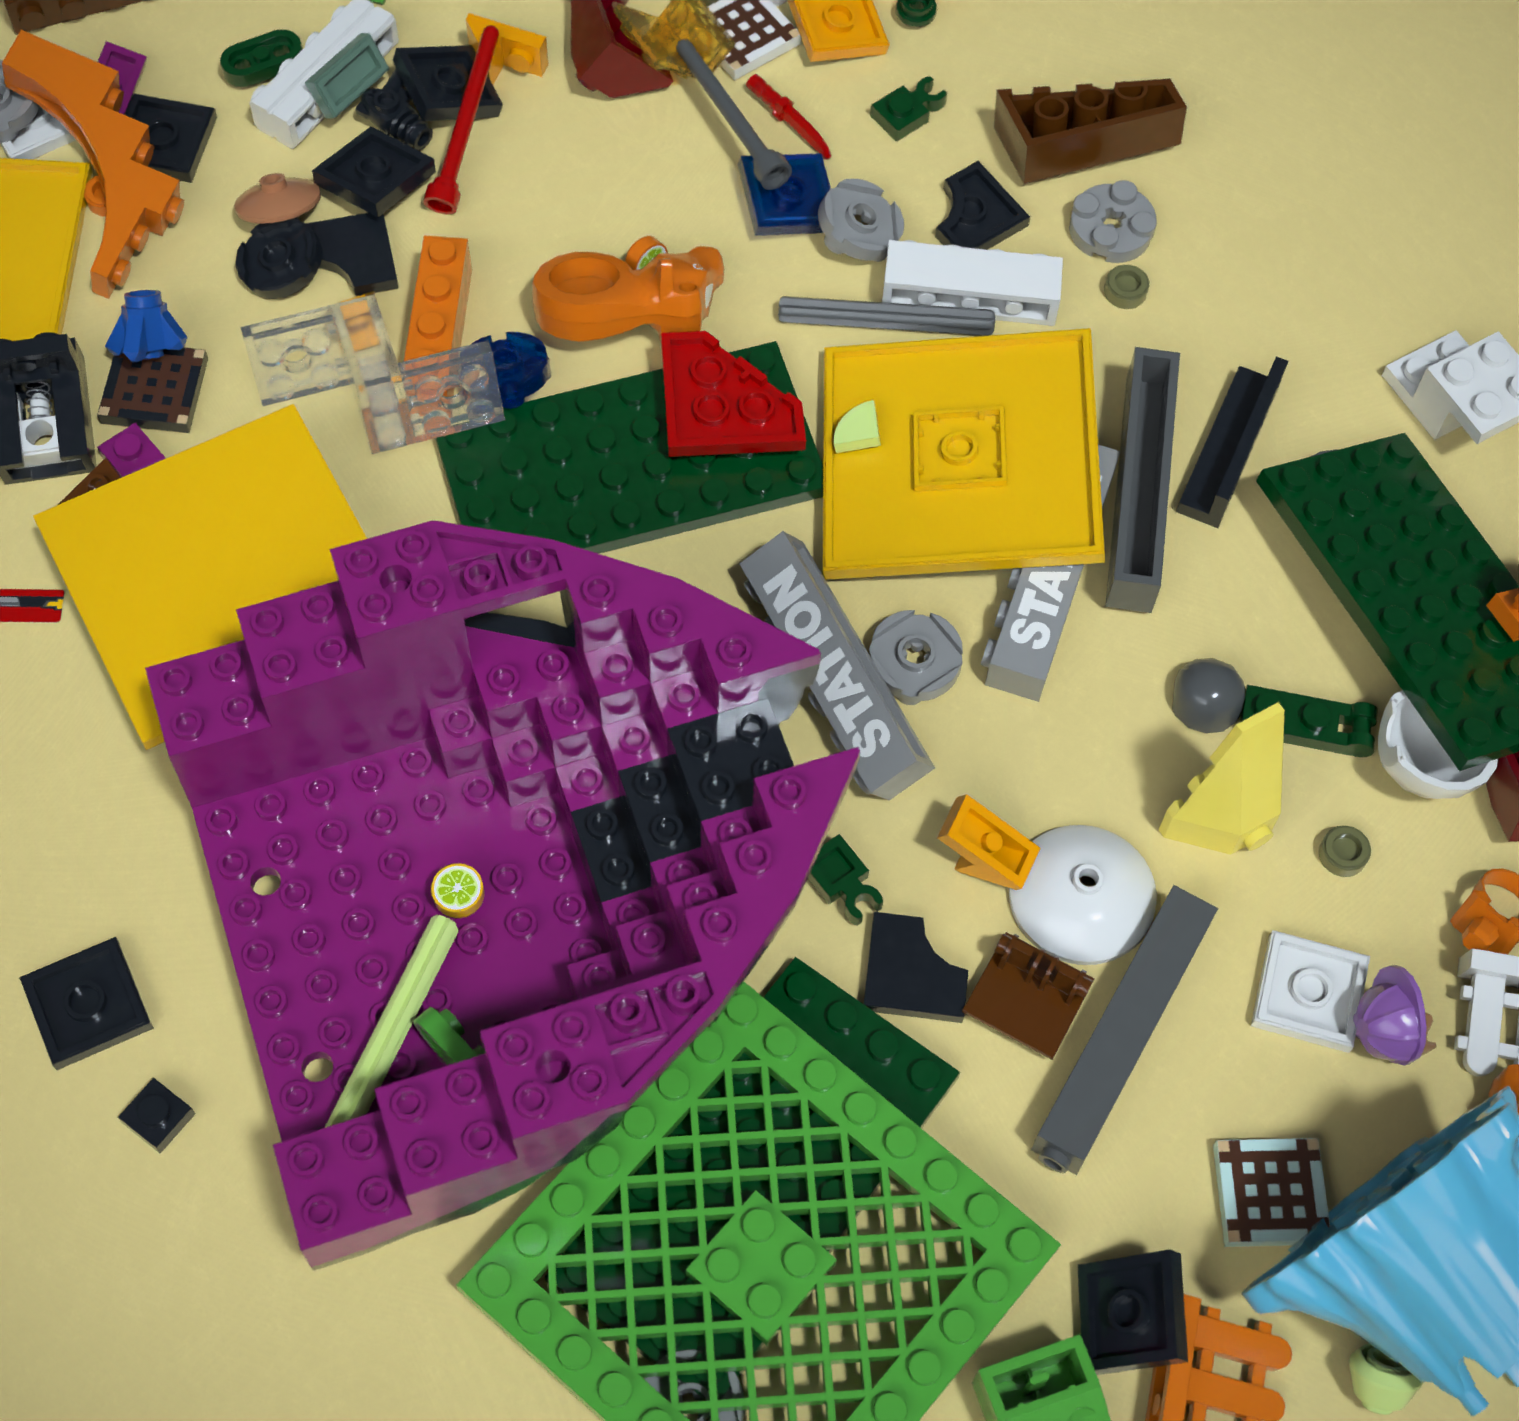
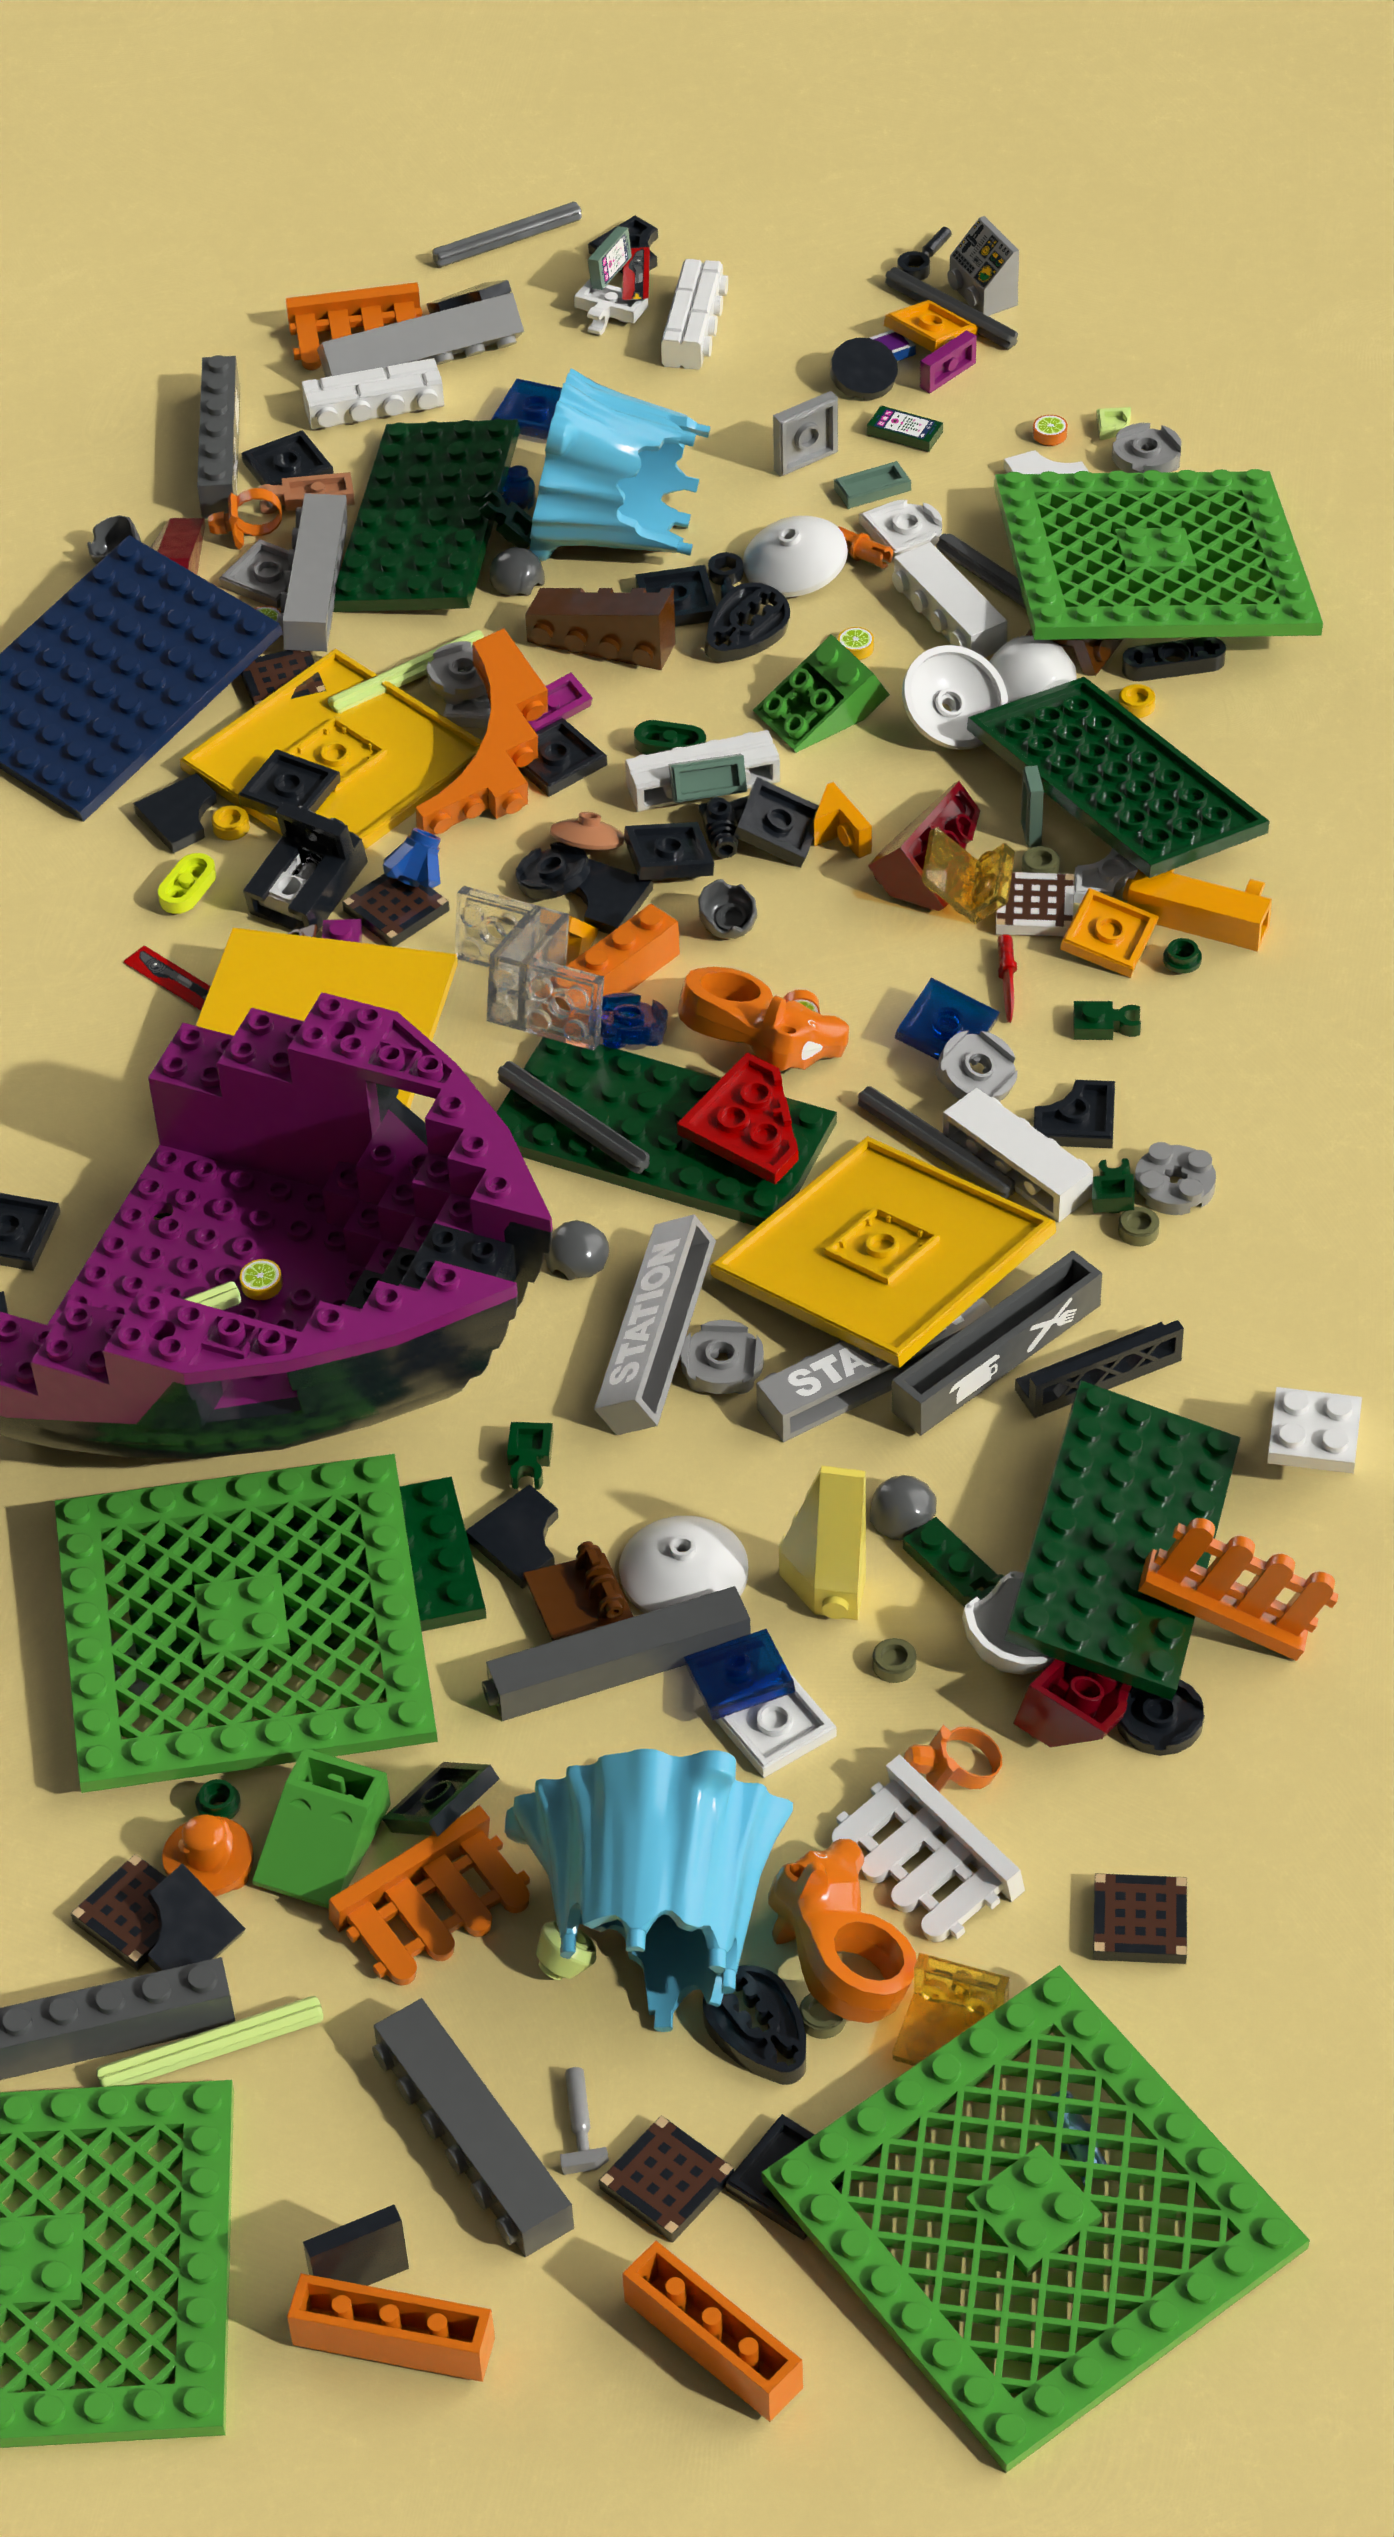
camera: 45 degrees right, 15 degrees down
(443, 193) = (764, 847): red piece -> none
(488, 199) = (727, 909): none -> dark grey hair
(556, 502) = (573, 1117): none -> dark grey axle
(769, 166) = (939, 992): dark grey piece -> none
(858, 429) = (828, 1194): yellowish green tile -> none
(987, 844) = (640, 1486): light orange slope -> none
(1084, 265) = (1113, 1189): none -> dark green plate
(1088, 126) = (1216, 1100): reddish brown wedge -> none
(1247, 968) = (739, 1674): none -> clear blue plate
(1394, 1018) = (791, 1761): medium lavender piece -> none

